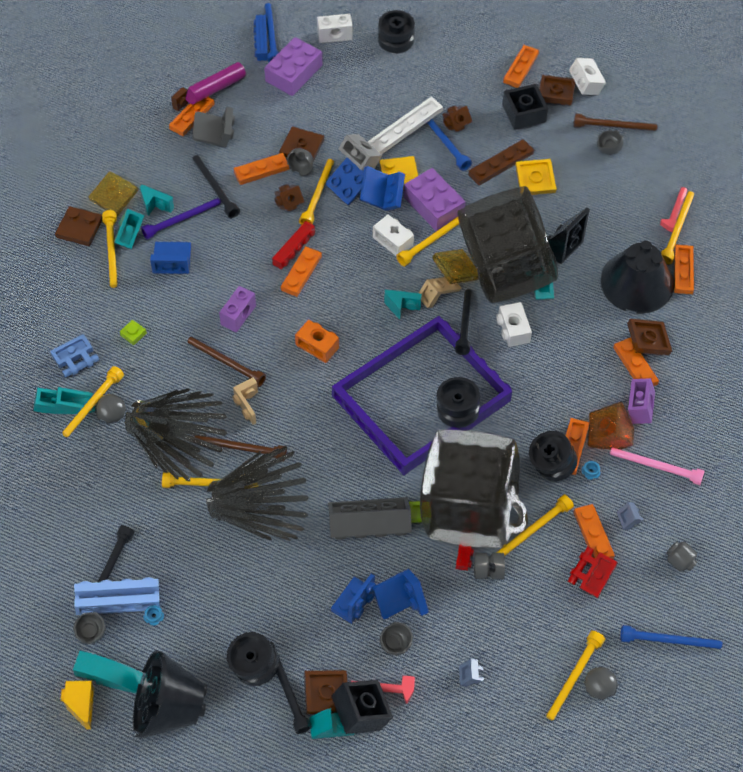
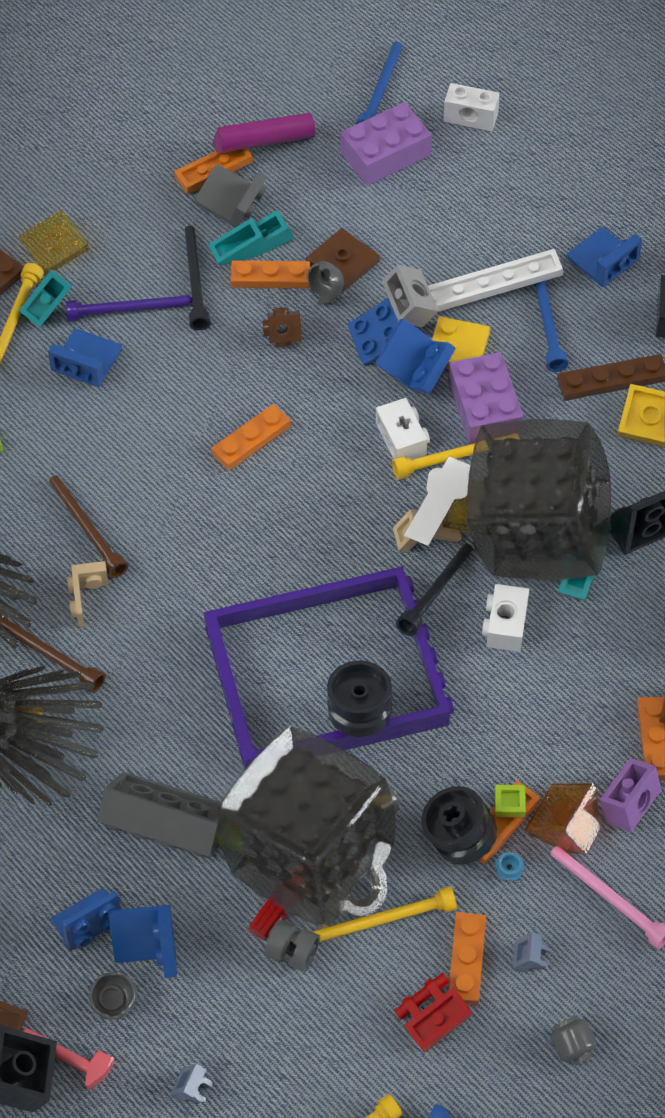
camera: 25 degrees right, 0 degrees up
(154, 198) = (101, 267): teal slope -> none
(179, 99) = (203, 140): reddish brown plate -> none
(237, 309) = (135, 459): medium lavender brick -> none
(239, 150) = (251, 239): none -> teal slope
(260, 37) = (363, 88): blue piece -> none
(293, 245) = (258, 396): red piece -> none
(307, 339) = (223, 556): orange brick -> none
(308, 215) = (297, 364): yellow piece -> none
(396, 31) = (555, 139): black wheel -> none
(399, 299) = (363, 525): teal slope -> none
(441, 259) = (442, 488): none -> white sticker
(456, 118) = (584, 297): reddish brown brick -> none
(459, 91) = (605, 256): none -> blue bracket
(575, 430) = (510, 801): none -> lime plate

